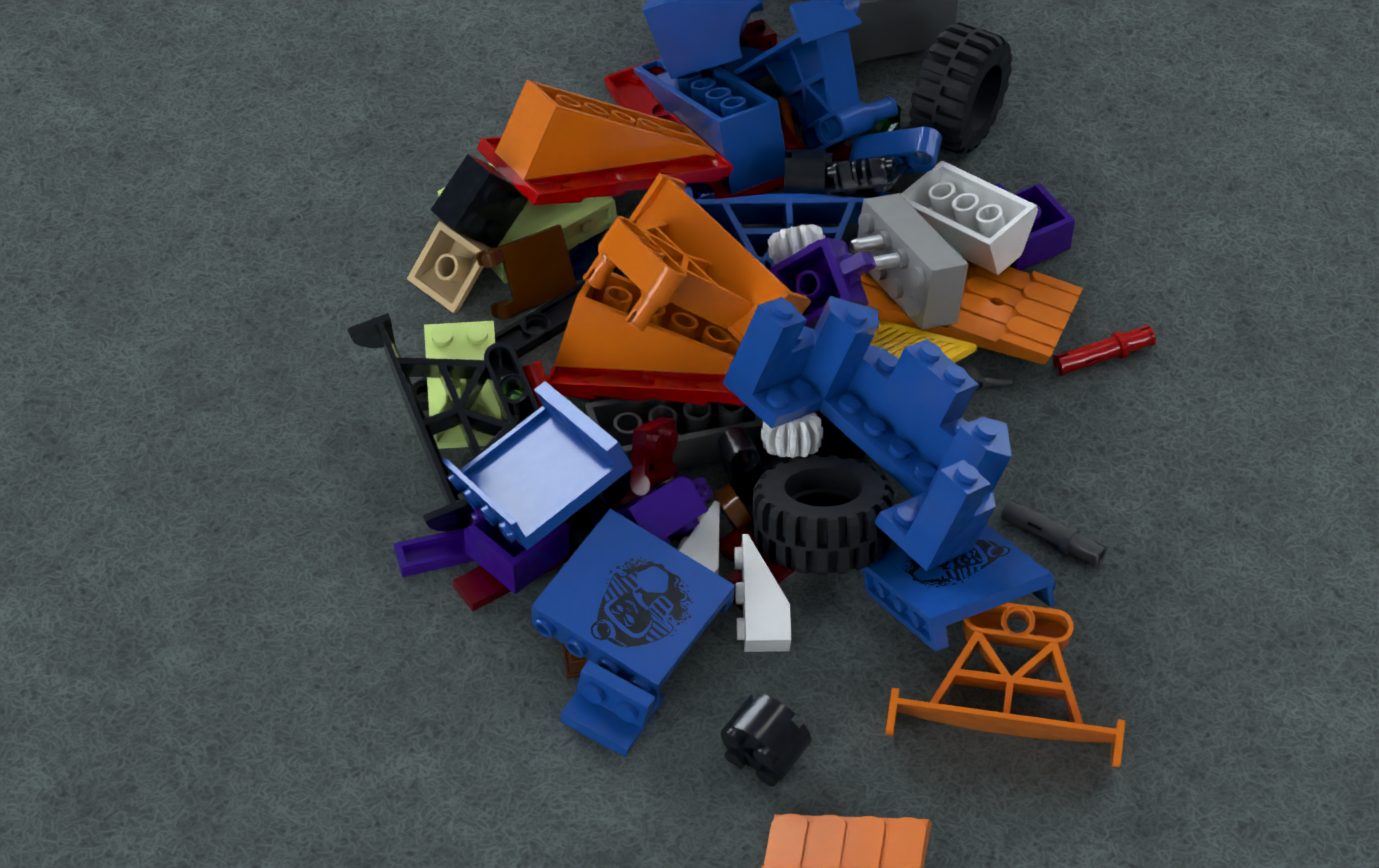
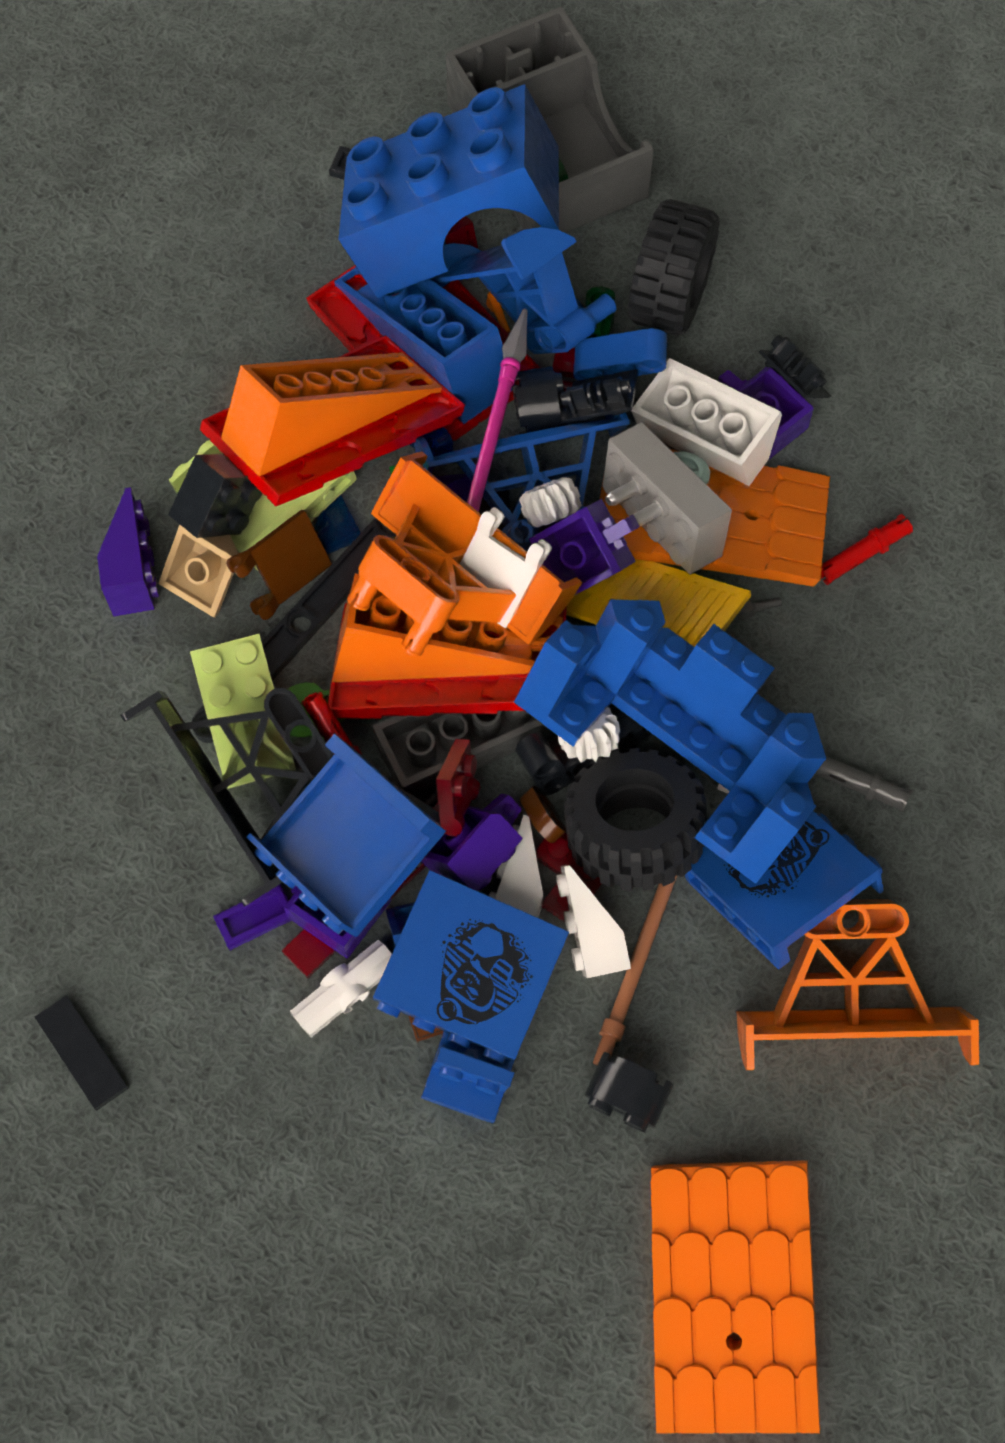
camera: 10 degrees left, 20 degrees up
(239, 633) = (81, 1052): none -> black tile
(381, 248) = (127, 560): none -> dark purple slope
(501, 620) = (342, 989): none -> white piece
(735, 271) = (499, 565): none -> white flag
(790, 129) = (513, 353): none -> dark pink piece
(809, 635) = (613, 1028): none -> nougat bar
(1066, 189) = (802, 375): none -> black hinge

